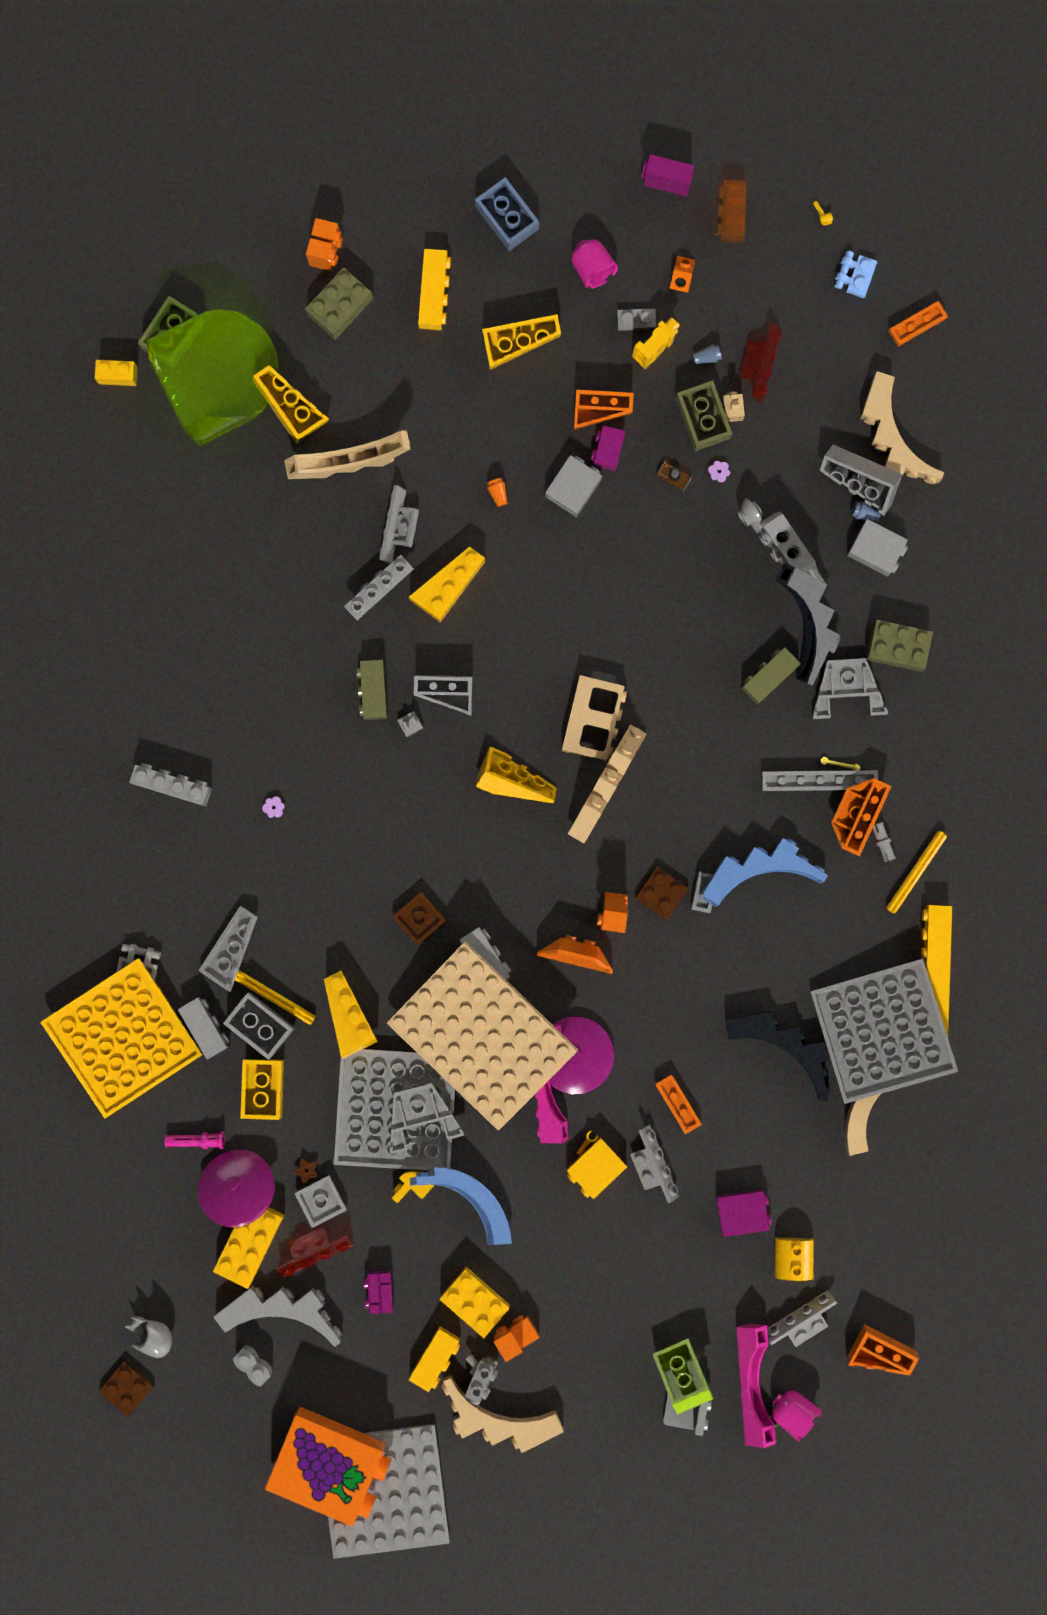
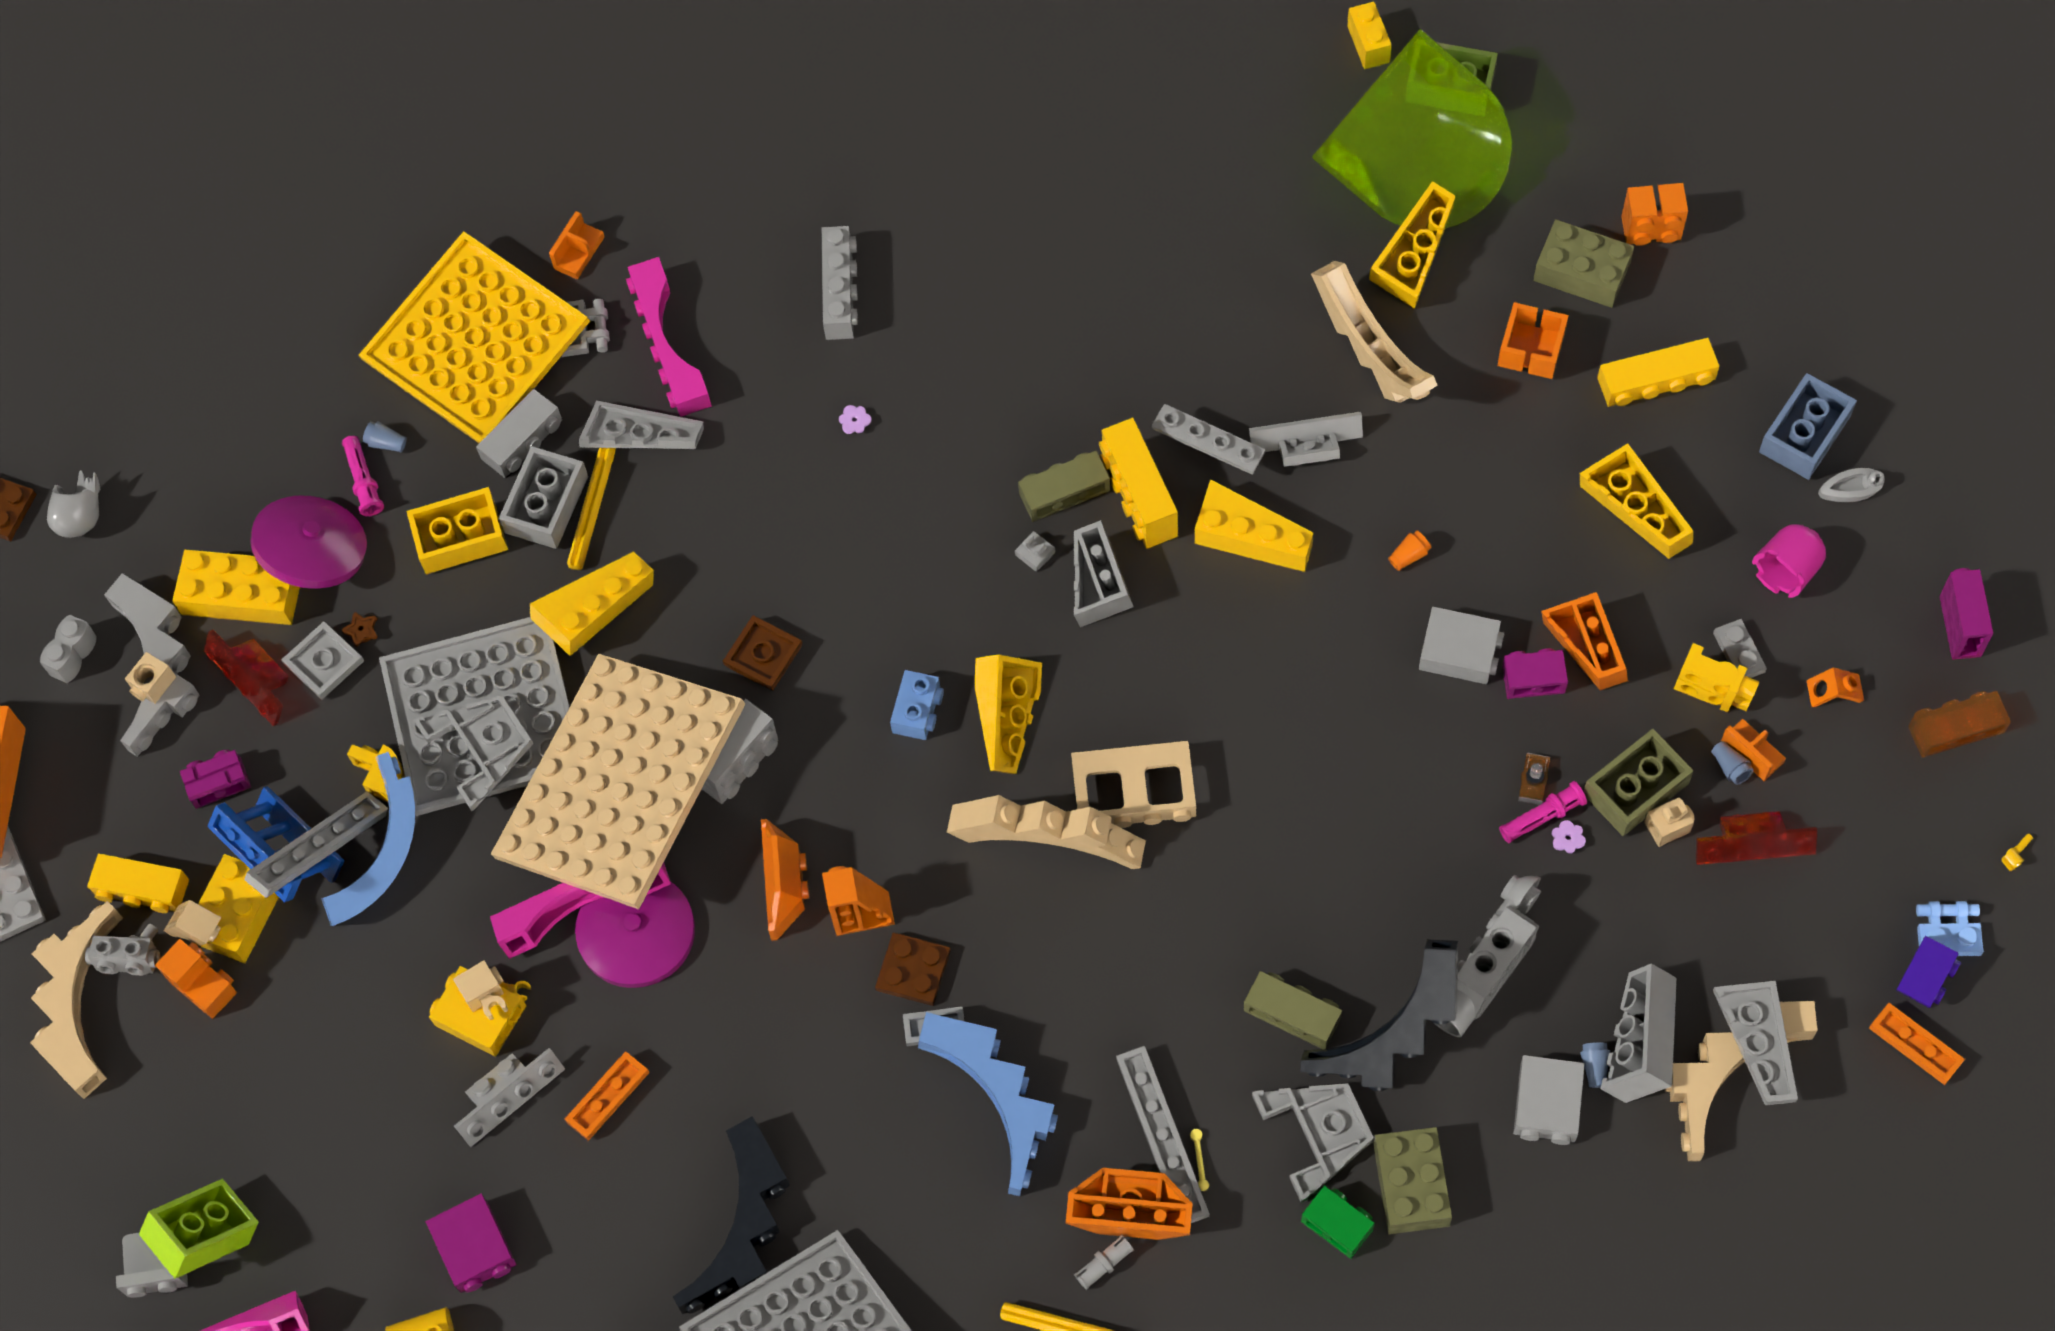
camera: 75 degrees right, 20 degrees down
(76, 949) = (575, 246): none -> orange panel
(127, 909) = (685, 381): none -> dark pink arch
(172, 1118) = (382, 437): none -> sand blue cone
(301, 1308) = (148, 667): none -> tan brick
(385, 358) = (1530, 345): none -> orange piece
(393, 642) = (1139, 483): none -> yellow brick
(456, 1276) = (251, 845): none -> blue fence
(459, 1239) = (316, 844): none -> light grey plate
(485, 1331) = (193, 923): none -> tan arch
(491, 834) = (916, 704): none -> medium blue brick
(553, 204) = (1852, 485): none -> light grey arm
(590, 1162) = (481, 988): none -> tan brick
(698, 471) = (1554, 806): none -> dark pink pin
(703, 338) = (1754, 747): none -> orange panel
(881, 298) = (1928, 972): none -> dark purple brick
(885, 410) = (1759, 1031): none -> light grey wing
(907, 698) = (1338, 1221): none -> green brick

